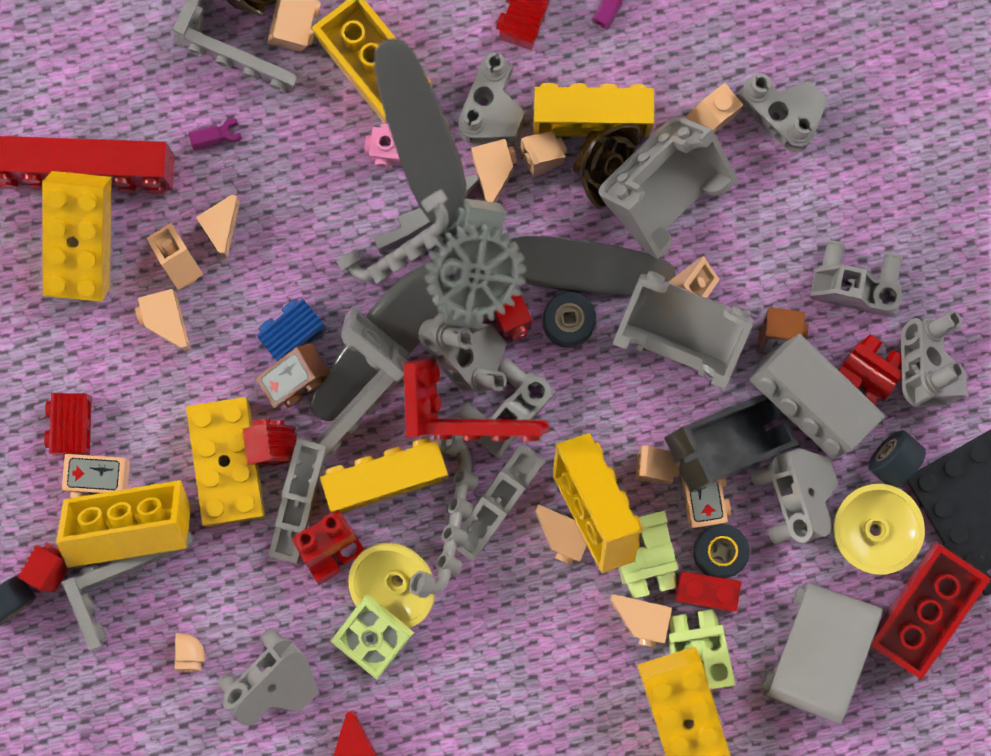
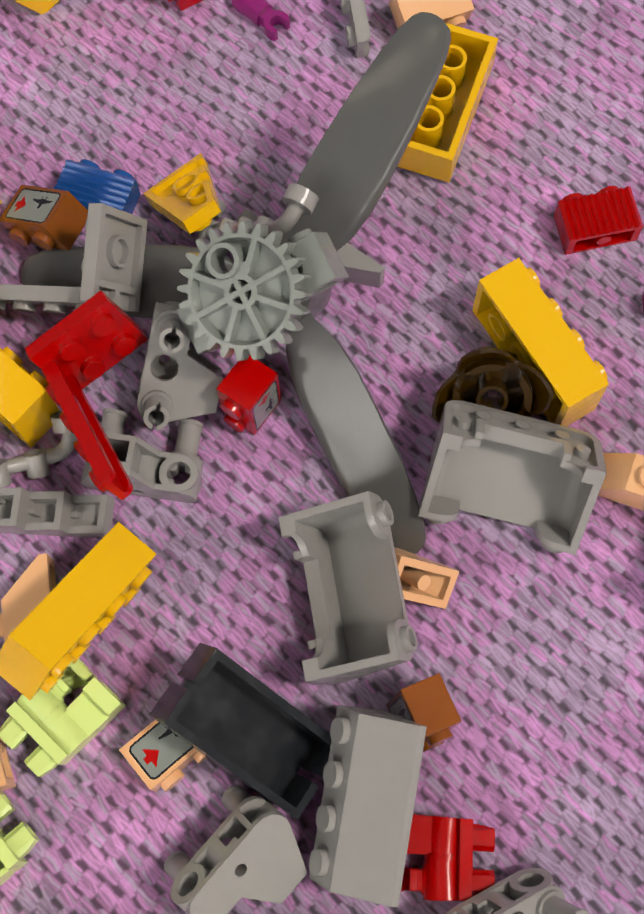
camera: 65 degrees right, 10 degrees down
(163, 317) = (38, 72): light nougat slope -> none
(174, 256) = (106, 45): light nougat slope -> none
(220, 223) = (169, 66): light nougat slope -> none
(338, 271) = (187, 196): none -> yellow wing
(493, 167) = (404, 288): light nougat slope -> none
(501, 115) = (459, 258): light grey piece -> none
(542, 152) = (456, 321): light nougat slope -> none
(566, 330) = (289, 480): black wheel -> none
(656, 465) = (165, 654): light nougat slope -> none
(707, 591) = (53, 818): red brick -> none
(729, 545) = (101, 800): black wheel -> none
(864, 288) = (547, 787): light grey piece -> none

